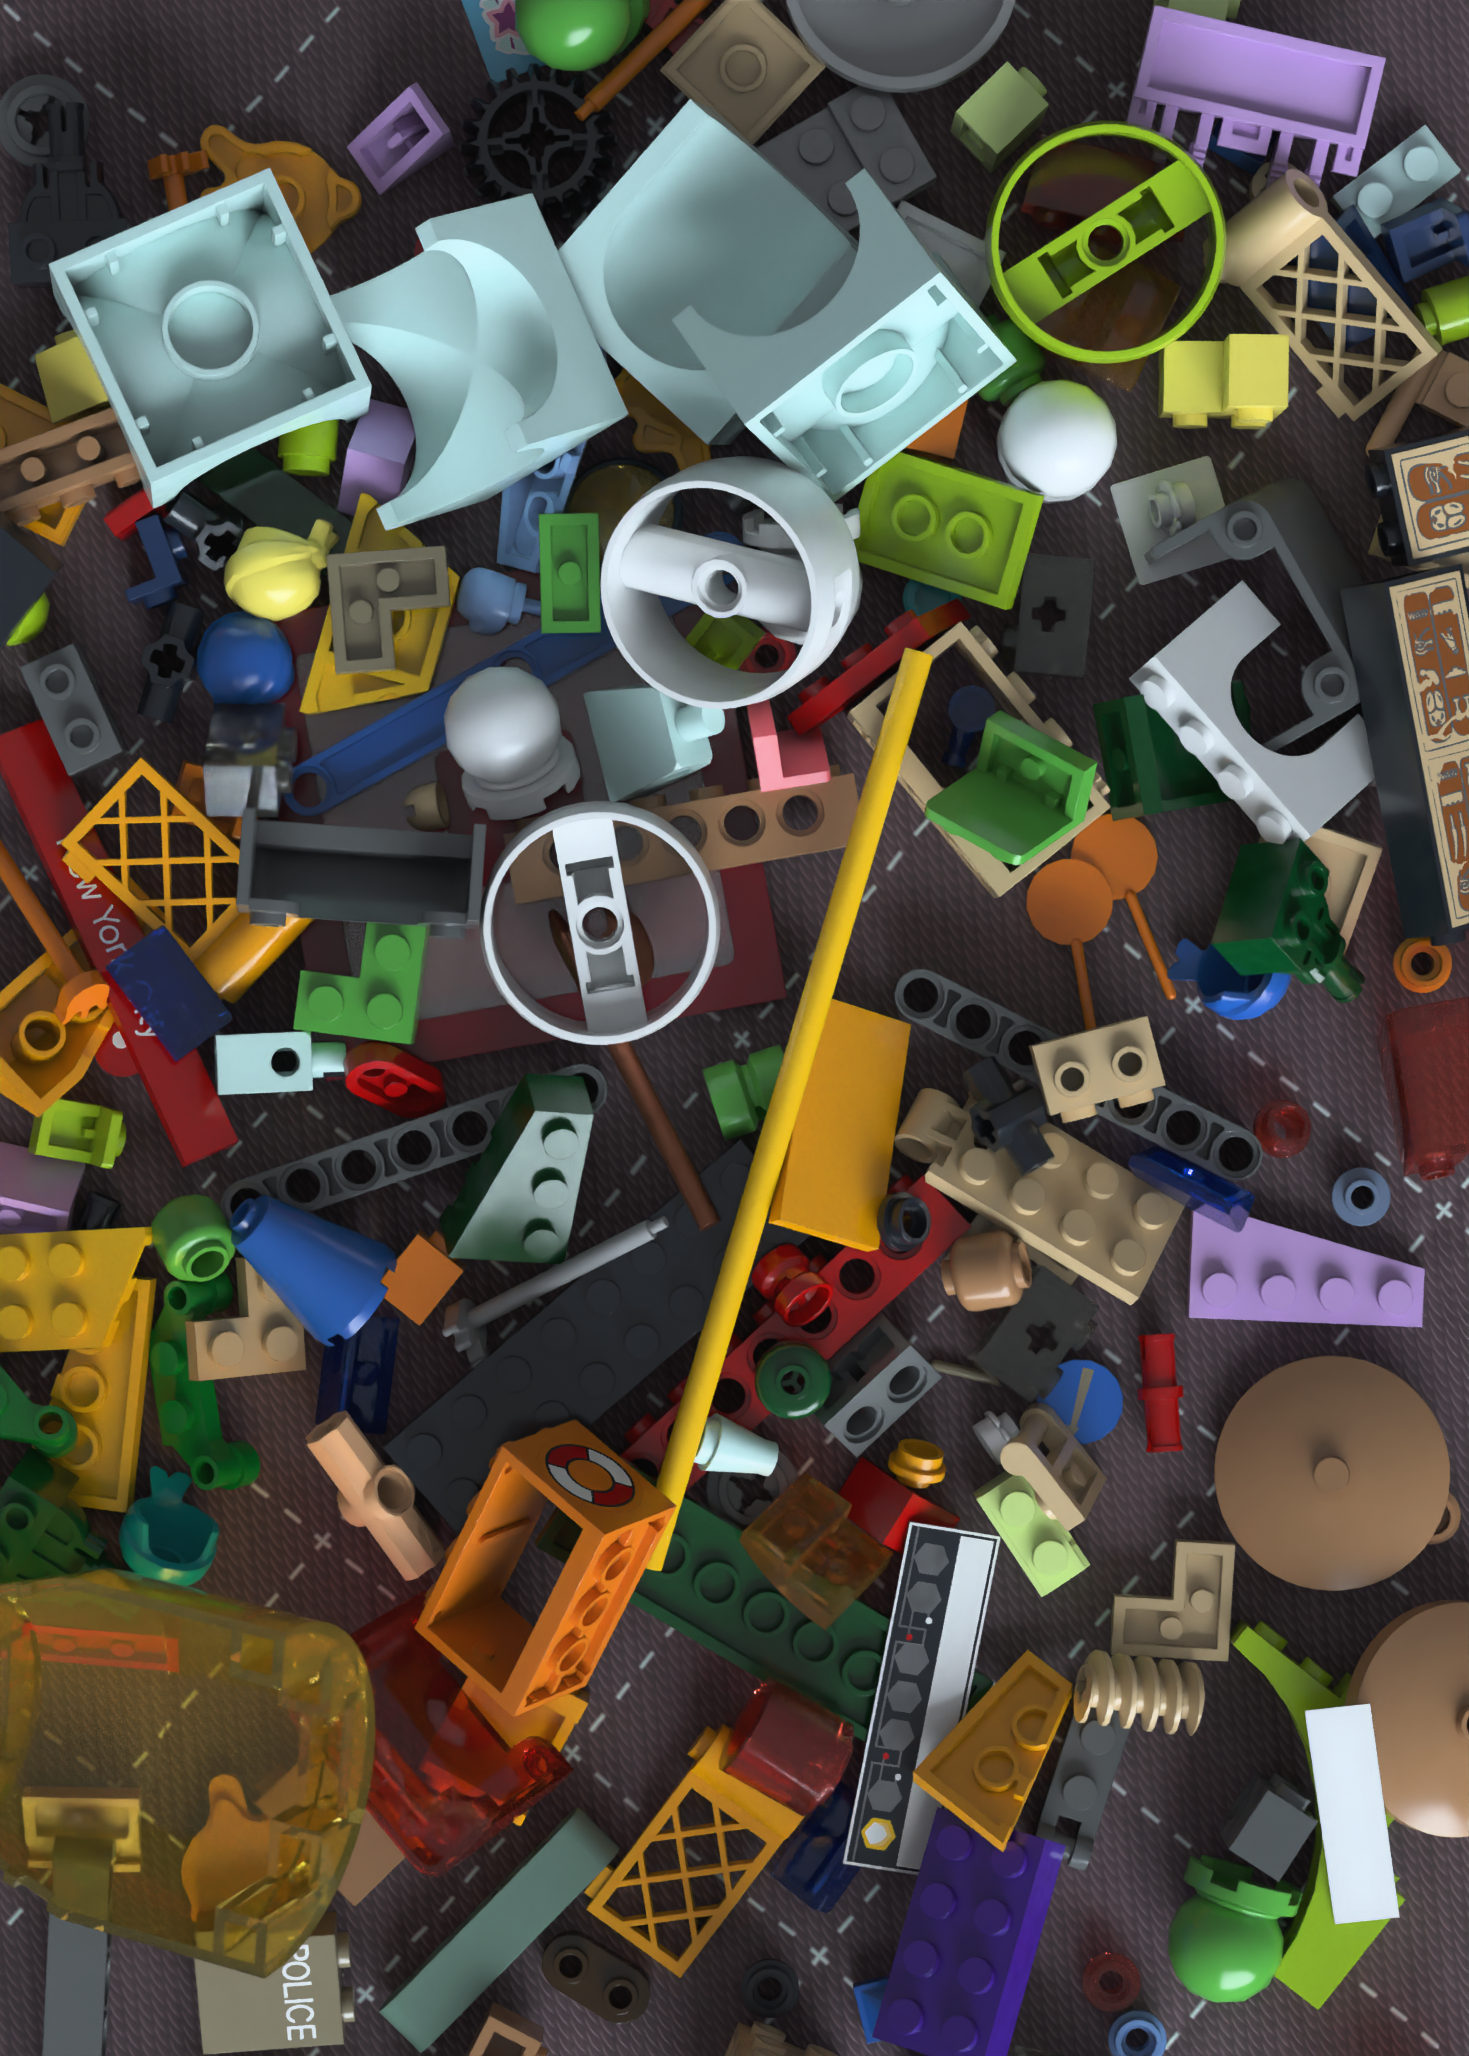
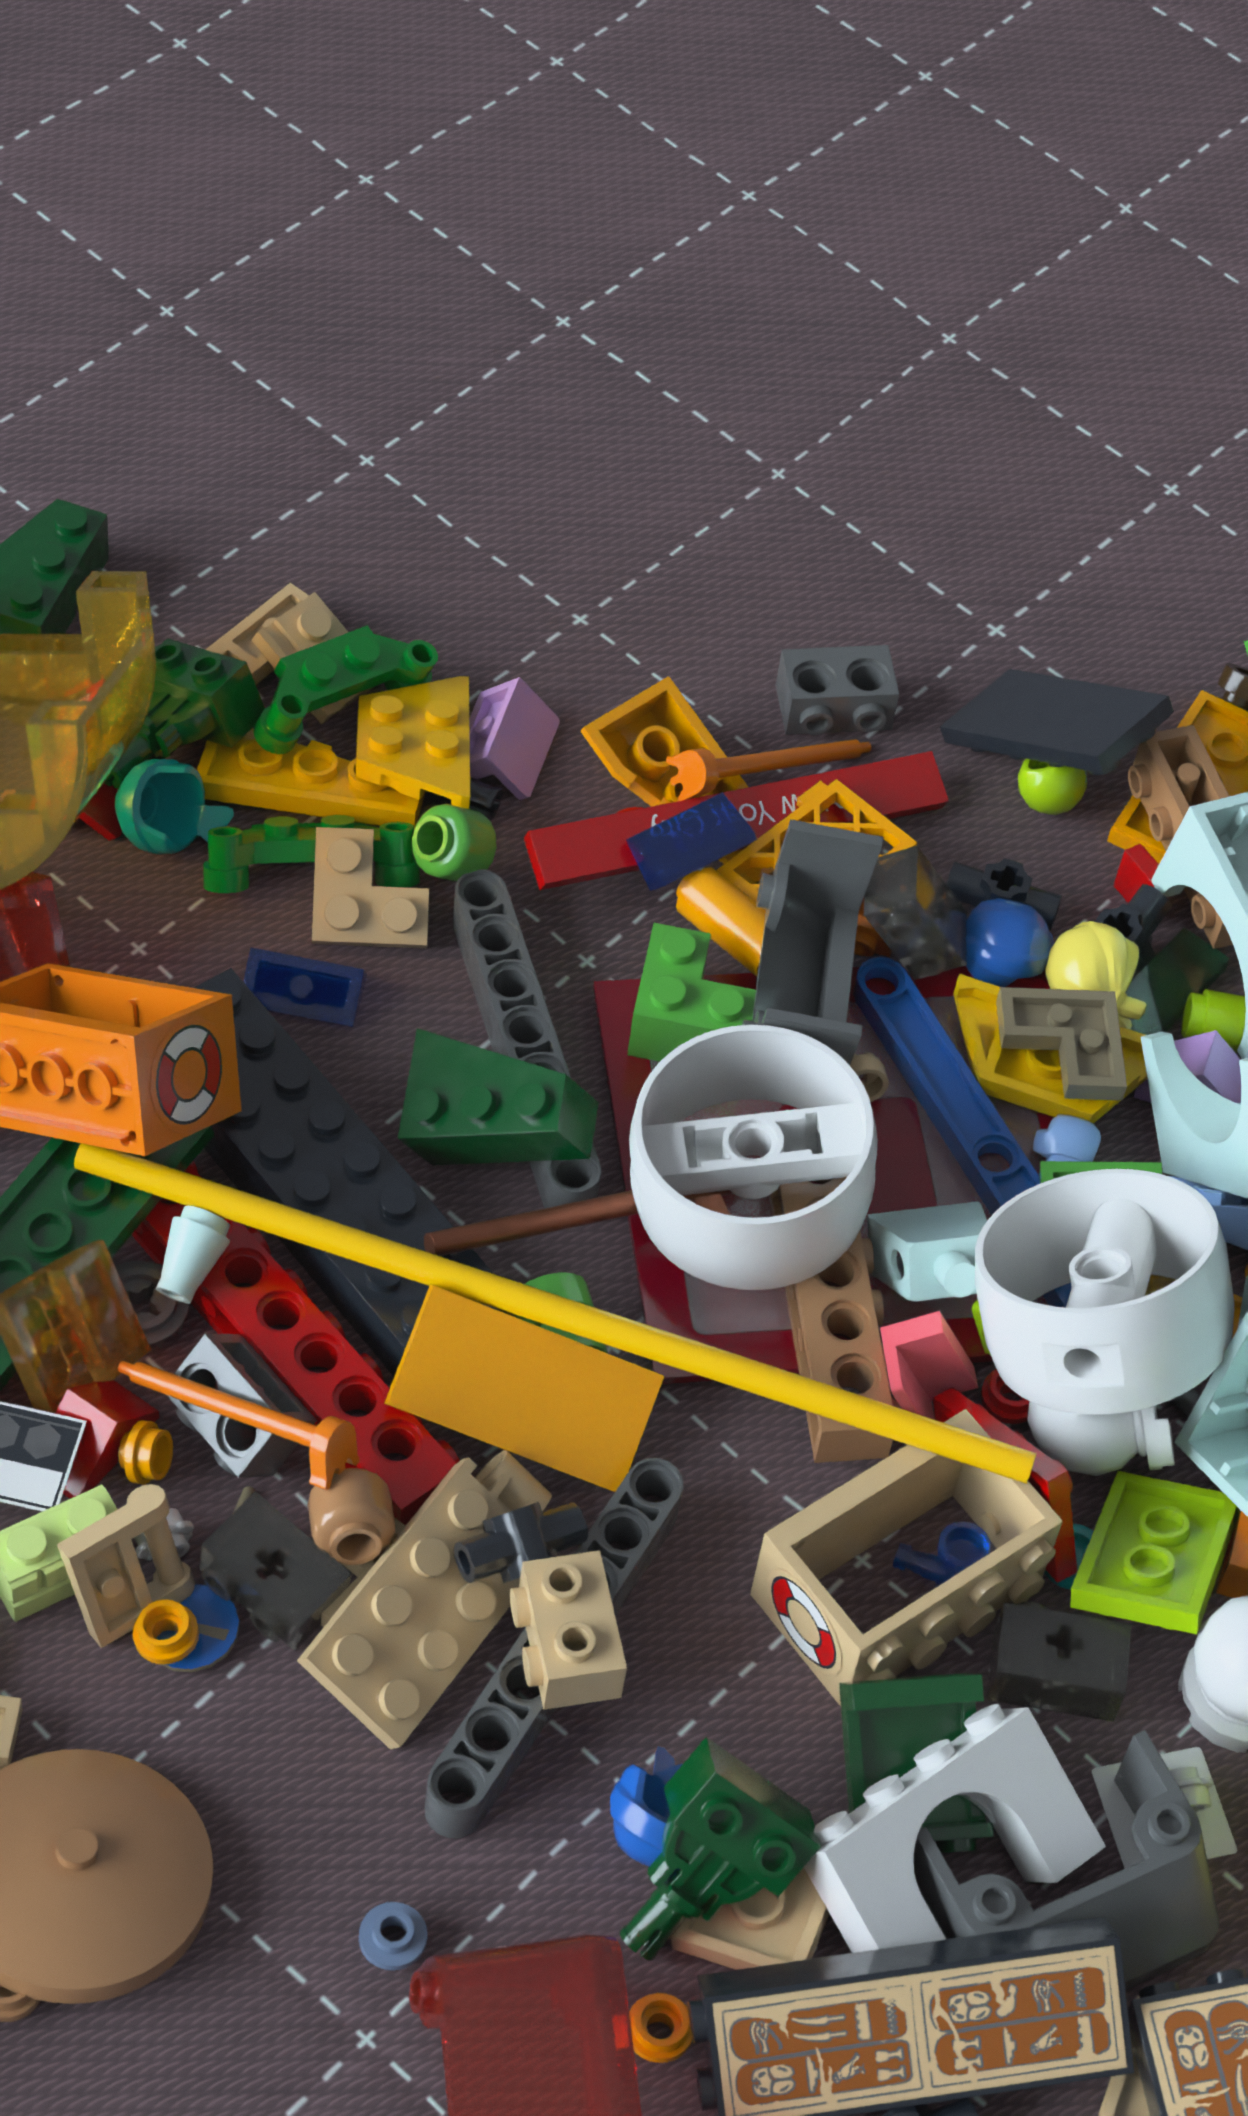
camera: 85 degrees right, 35 degrees down
(75, 710) = (961, 814): dark grey brick -> none
(79, 1133) = (560, 783): lime bracket -> none
(165, 550) = (1088, 896): dark blue bracket -> none
(246, 1058) = (618, 932): light aqua torso -> none
(313, 1265) = (422, 923): blue cone -> none
(375, 1495) = (214, 948): light nougat piece -> none
(394, 1079) = (596, 1019): red plate -> none
(422, 1276) = (386, 1025): orange brick -> none
(469, 1321) = (347, 1074): light grey piece -> none
(508, 742) = (943, 1113): white tile -> none
(794, 1288) = (357, 1320): red wheel -> none
(799, 1358) = (258, 1305): dark green head -> none
(903, 1221) = (418, 1447): black plate -> none
(943, 1301) = (330, 1442): none -> orange piece
(1019, 794) = (867, 1554): bright green bracket -> none
(1070, 906) = (735, 1664): orange piece -> none
(1100, 1440) = (161, 1617): none -> light orange plate
(1128, 859) = (785, 1715): orange piece -> none
(1160, 1392) = (191, 1702): red pin -> none
(1193, 1187) = (423, 1739): clear blue slope -> none
(1294, 1121) = (497, 1850): clear red plate -> none
(1296, 1278) = (308, 1852): lavender wing -> none

